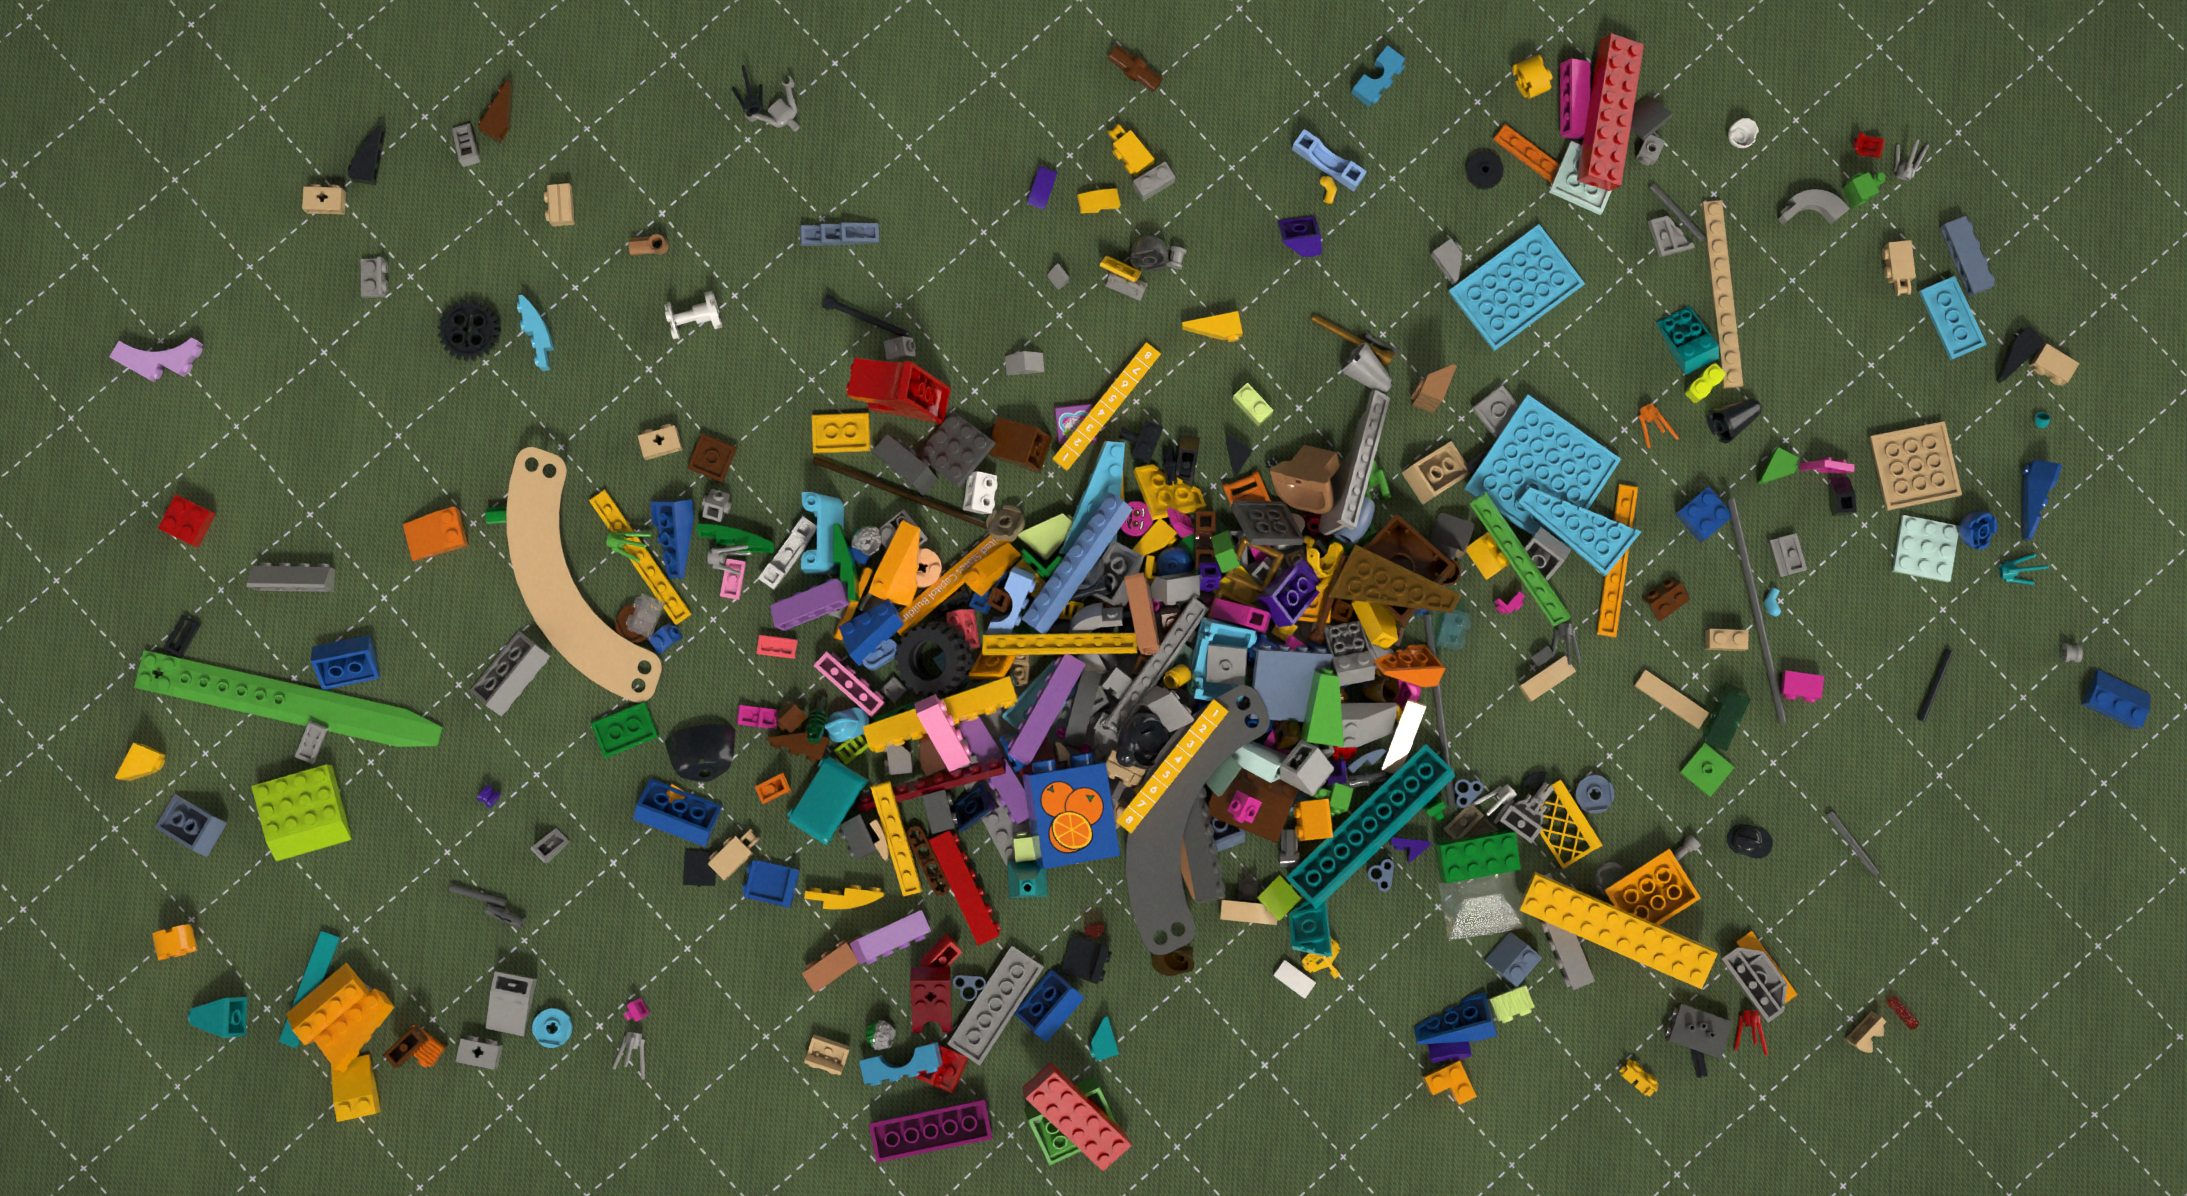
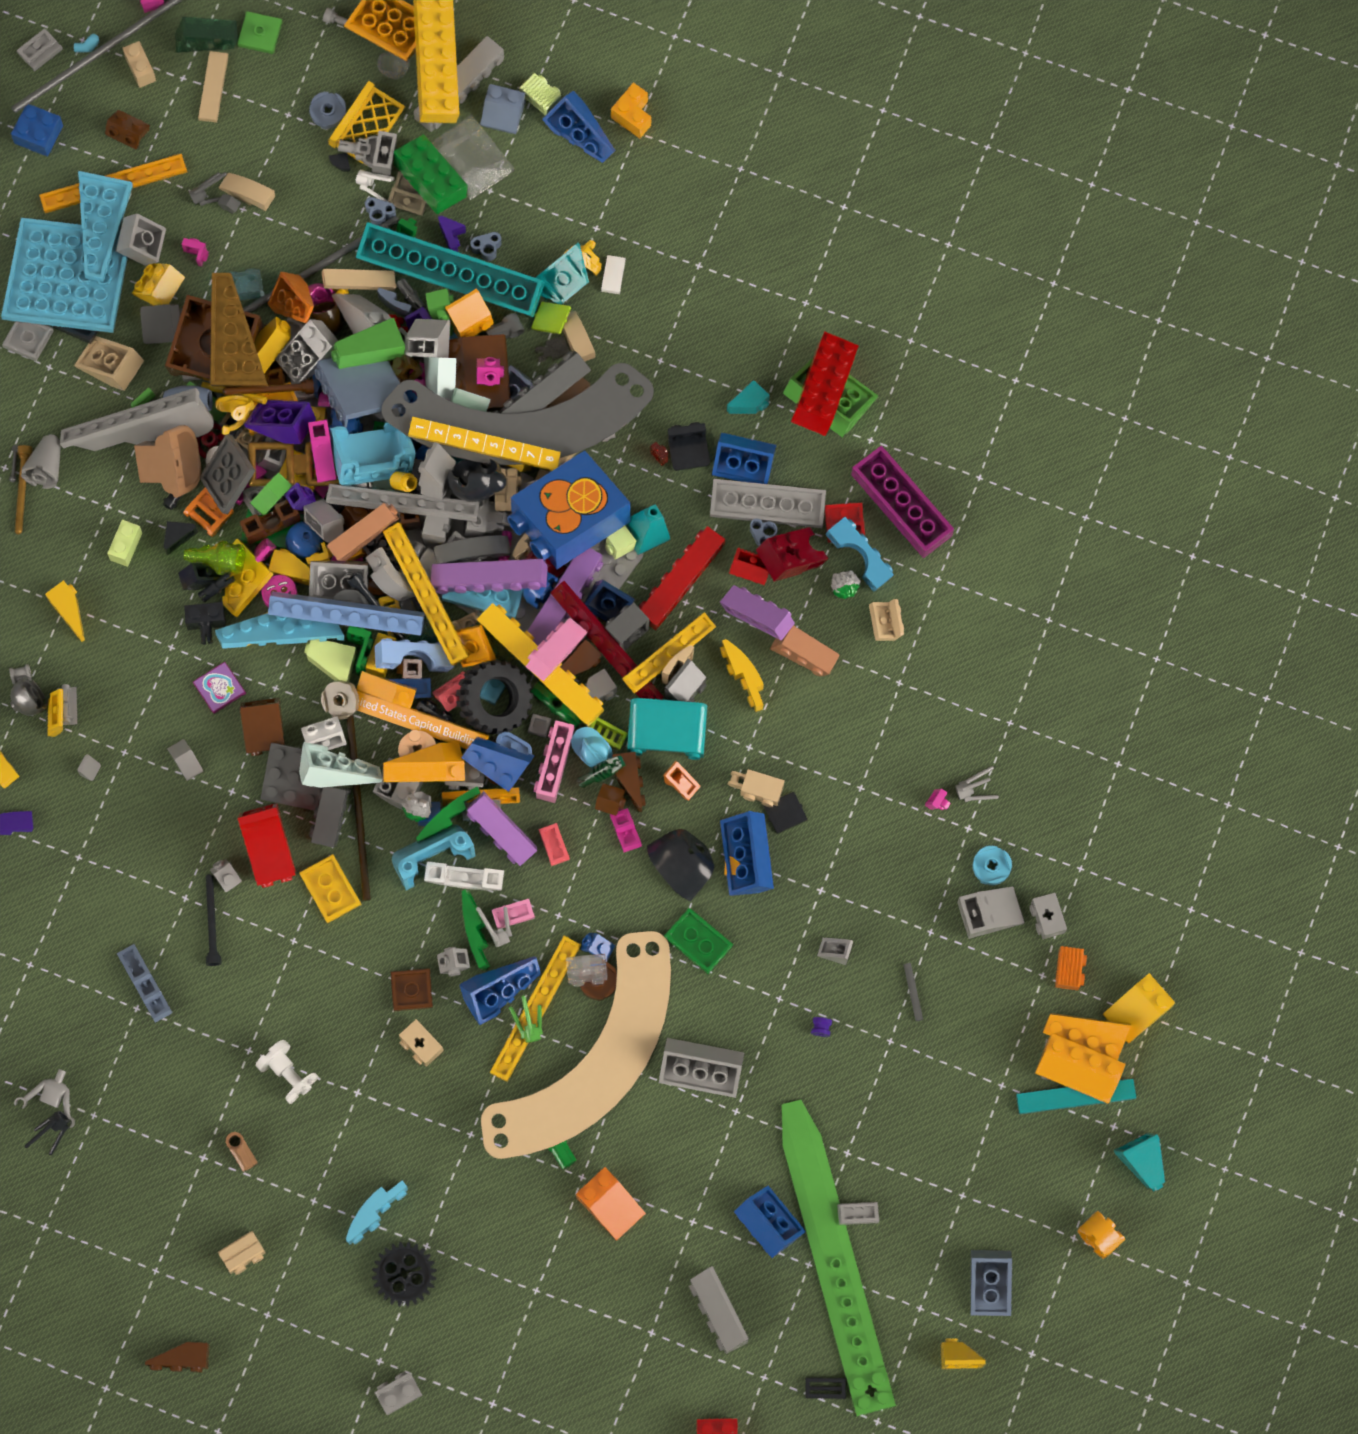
camera: 115 degrees left, 10 degrees down
(301, 812) = (924, 1187): lime slope -> none
(406, 1047) = (1078, 973): reddish brown brick -> none
(468, 156) = (228, 1364): light grey slope -> none
(504, 916) = (918, 957): dark grey pin -> none
(771, 883) = (765, 742): blue panel -> none
(930, 859) = (675, 622): reddish brown beam -> none
(940, 479) = (328, 769): none -> light aqua wedge
(1106, 406) = (189, 666): yellow tile -> none
(1175, 962) = (649, 368): dark brown piece -> none
(1189, 479) = (220, 557): none -> clear neon green piece
(1226, 664) = (371, 443): light grey plate -> none
(1432, 389) = (35, 389): medium nougat slope -> none
(1453, 1050) = (607, 124): dark purple slope -> none
(1519, 559) = (153, 255): bright green tile -> none

